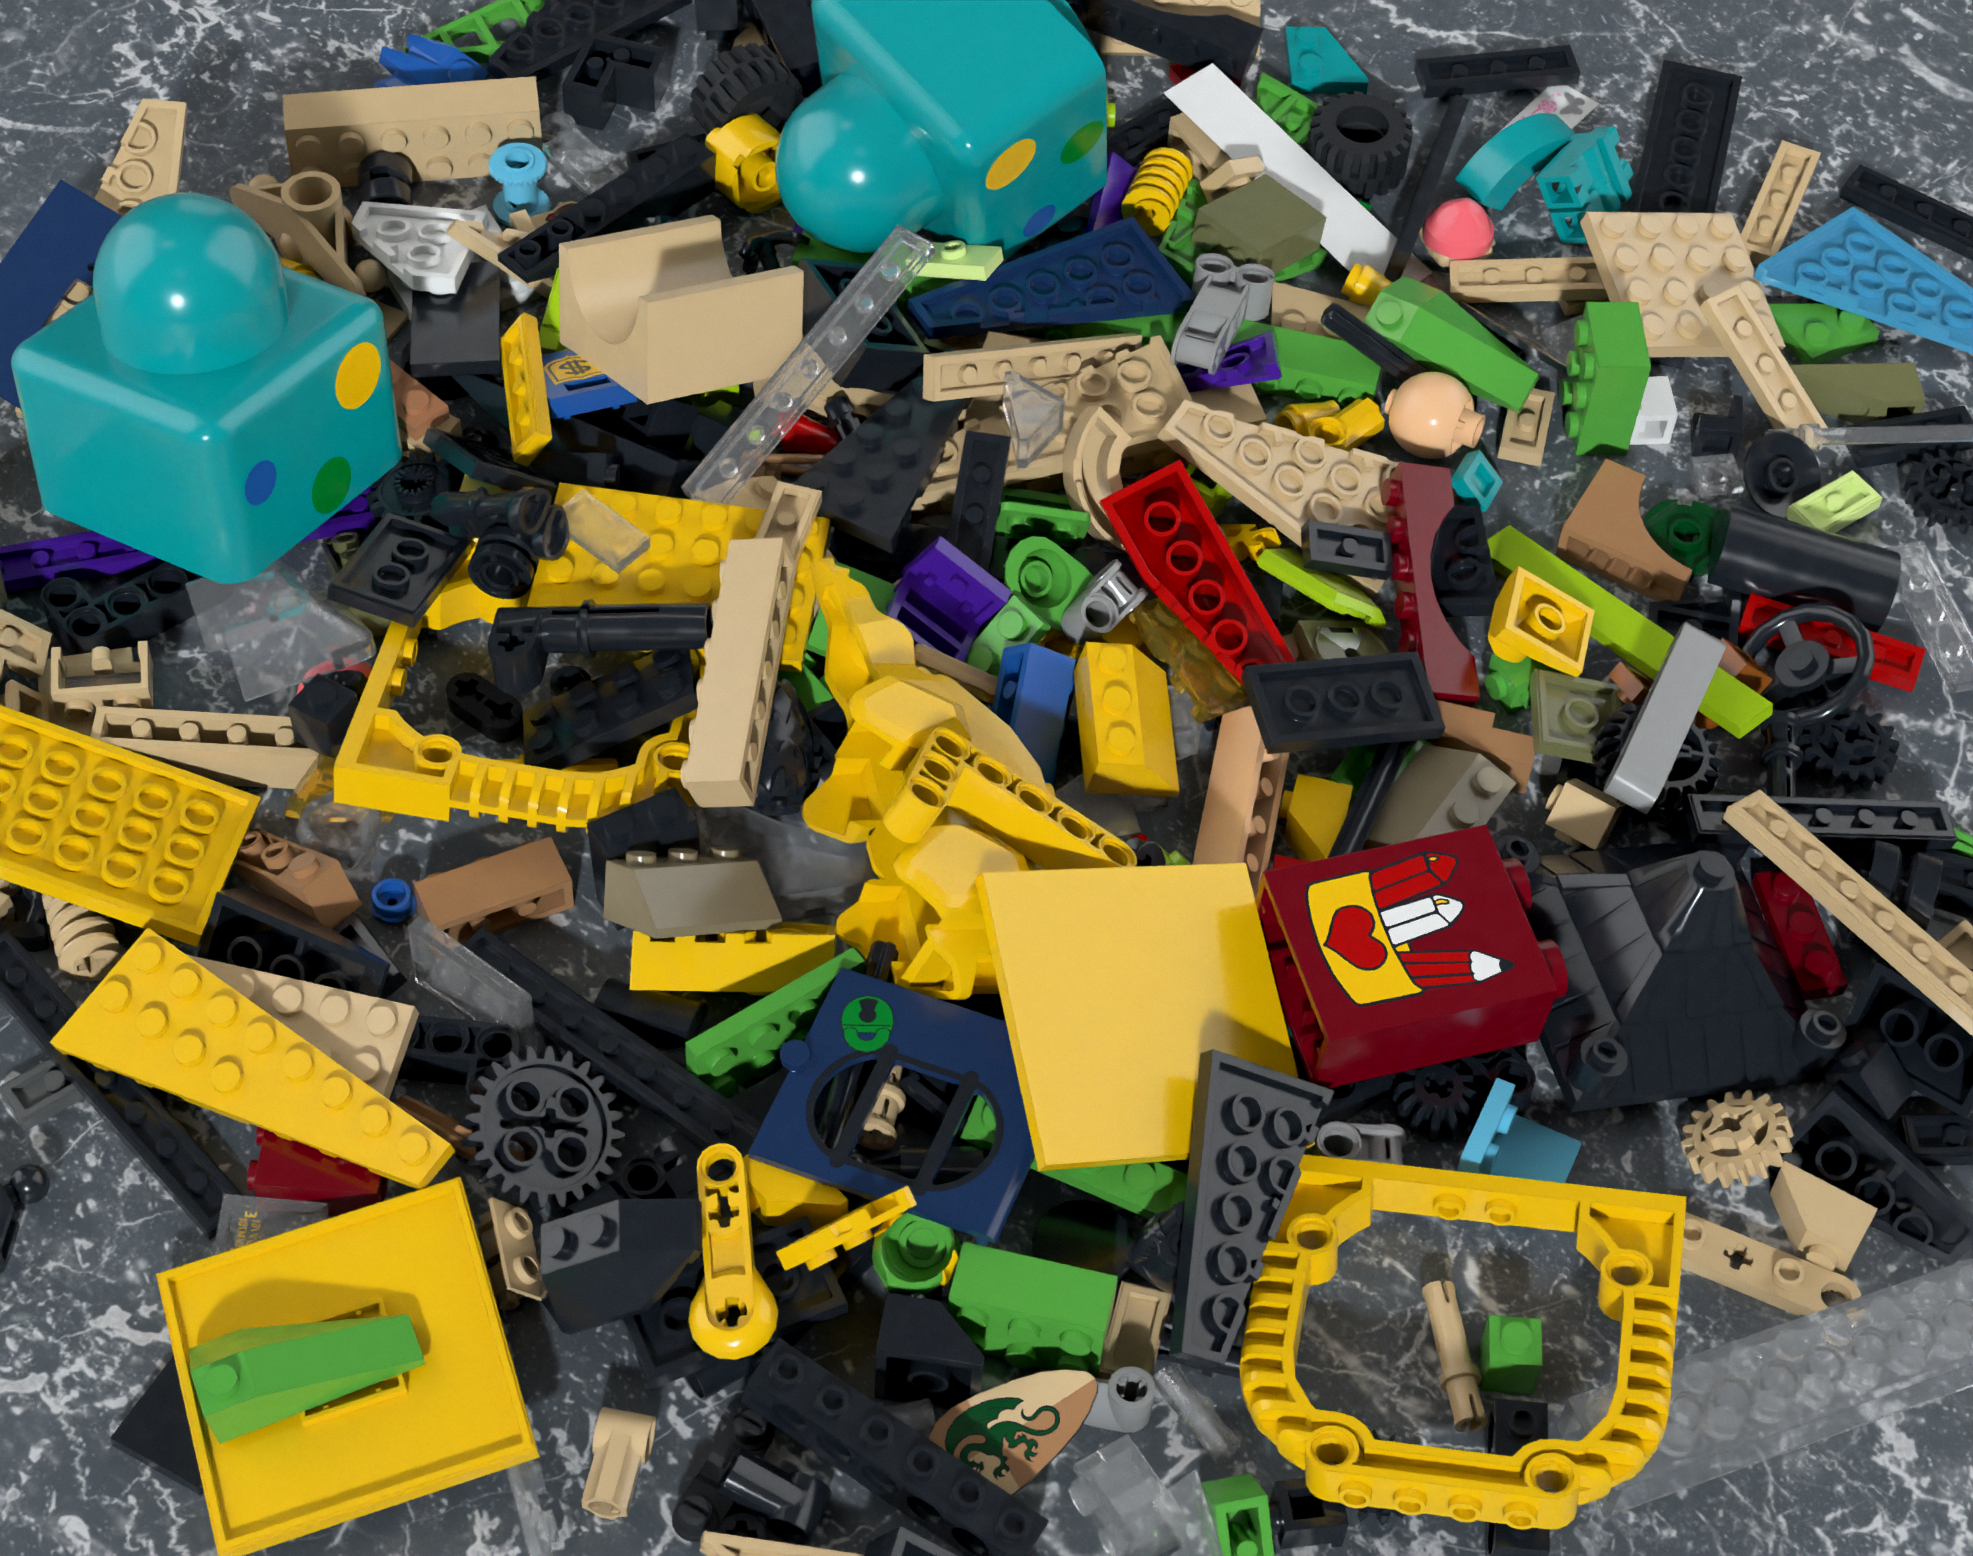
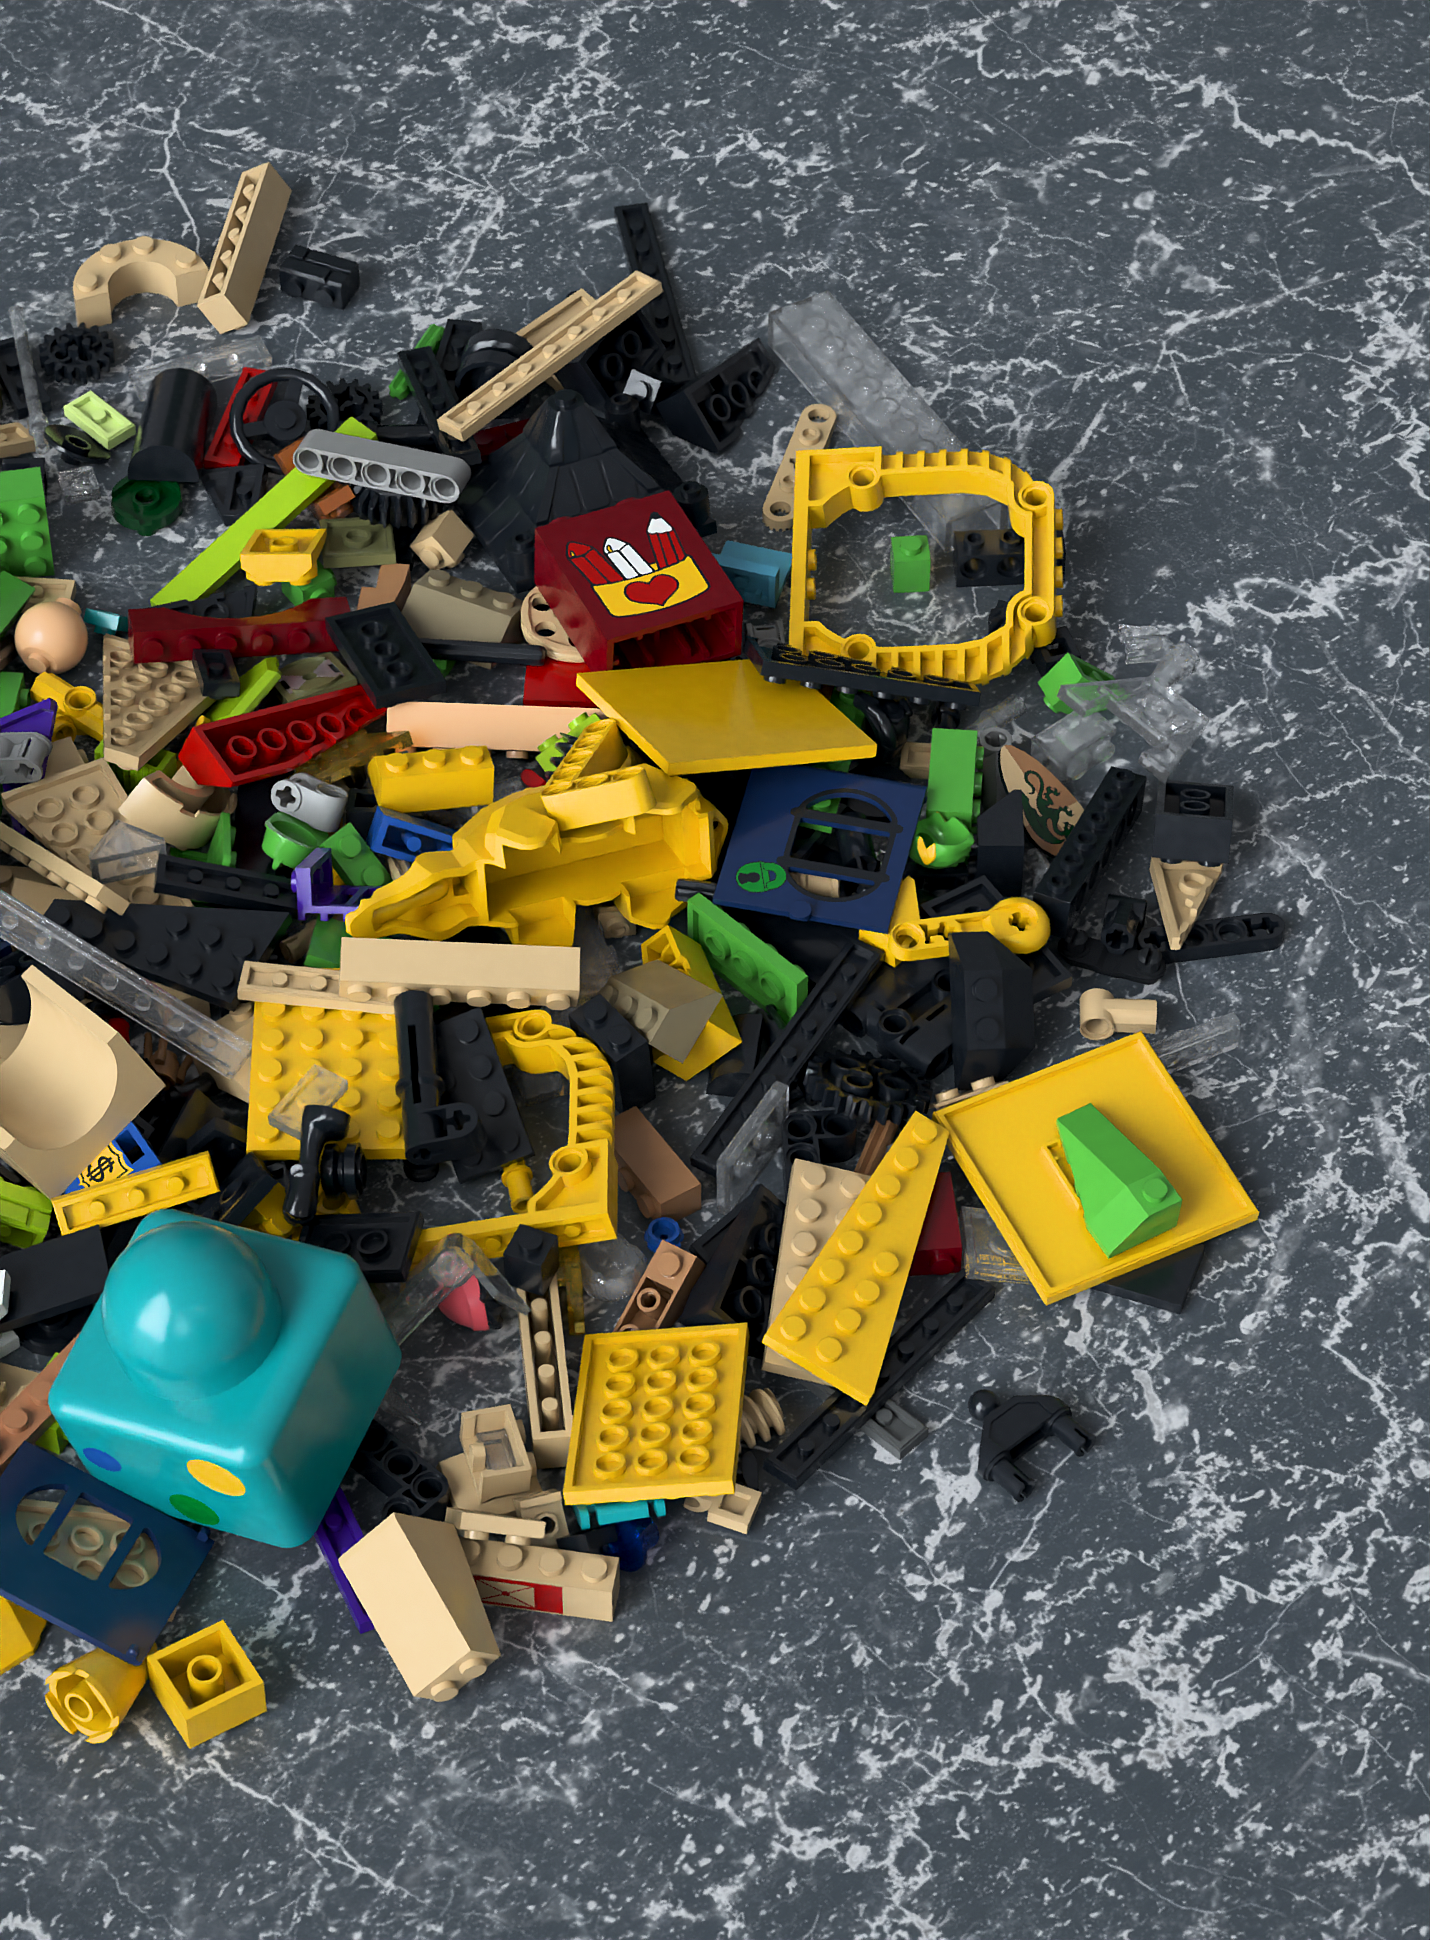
camera: 95 degrees left, 5 degrees down
(481, 712) = (444, 1210): black beam -> none
(847, 1230) = (940, 862): yellow wing -> none
(1314, 815) = (482, 683): yellow slope -> none
(1458, 1374) = (924, 593): tan pin -> none
(1611, 539) = (150, 541): medium nougat arch -> none
(1737, 1139) = (723, 448): tan gear -> none
(1820, 1218) = (763, 420): tan slope -> none

